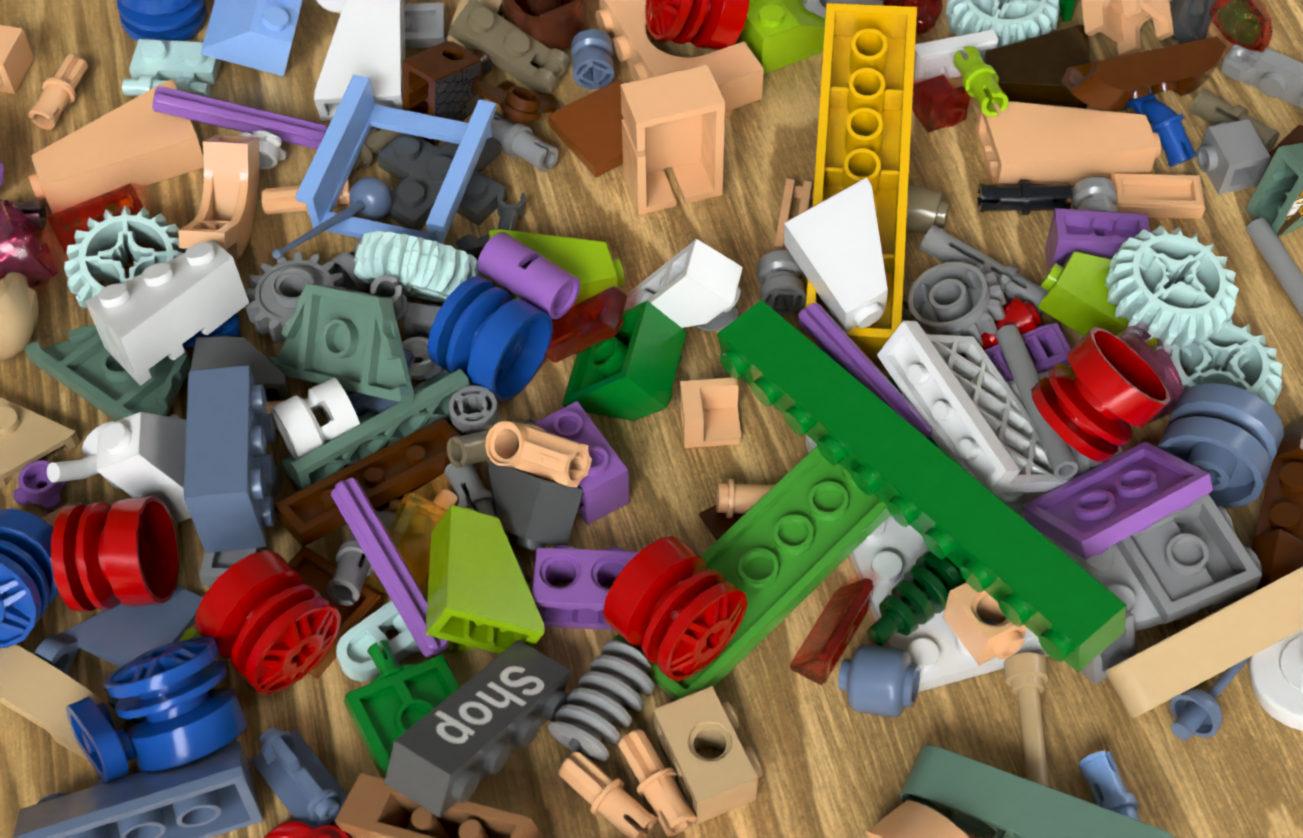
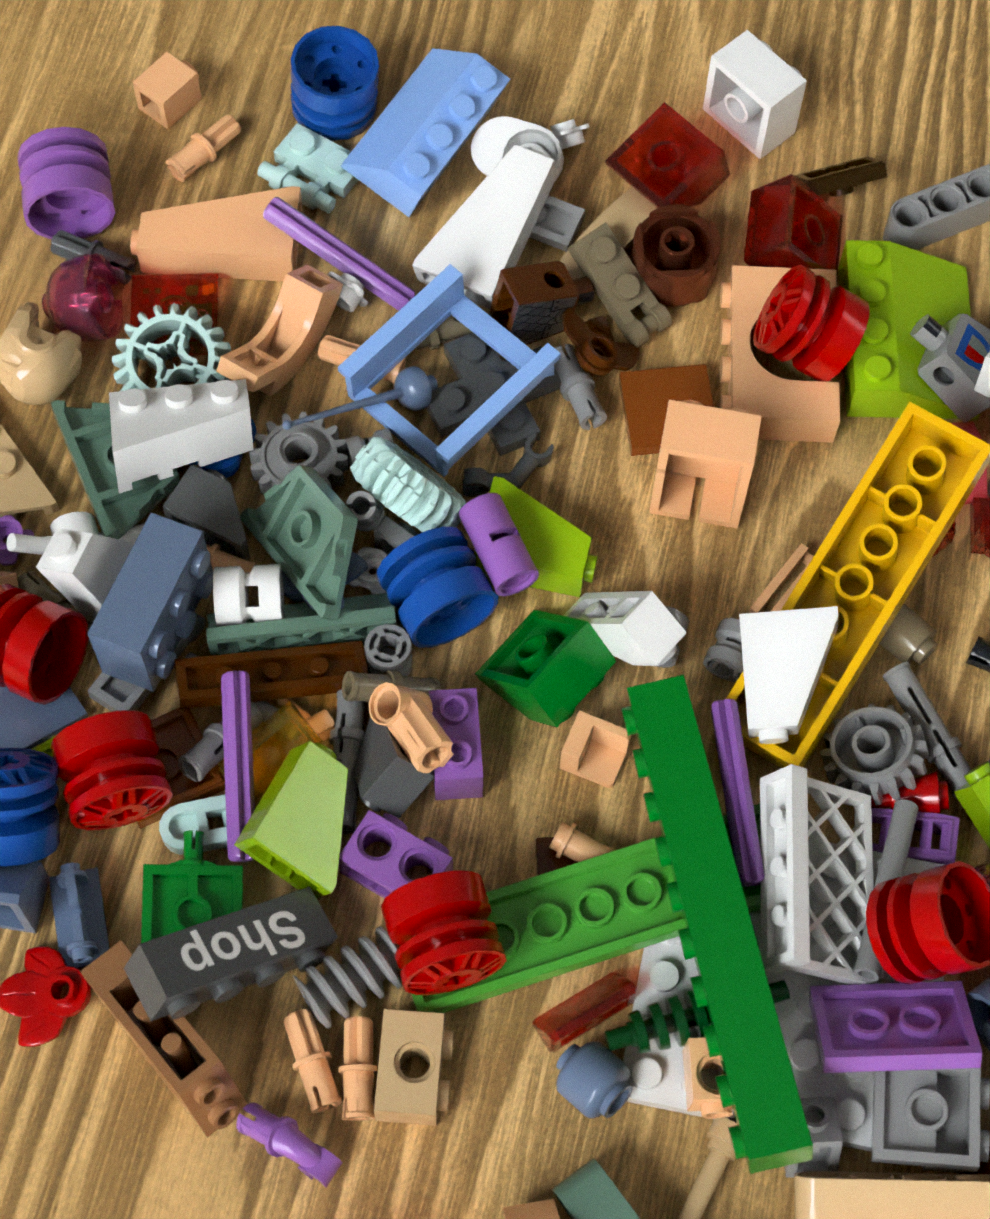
camera: 25 degrees right, 10 degrees up
(587, 324) = (531, 612): clear red plate -> none
(592, 59) = (690, 335): sand blue wheel -> none

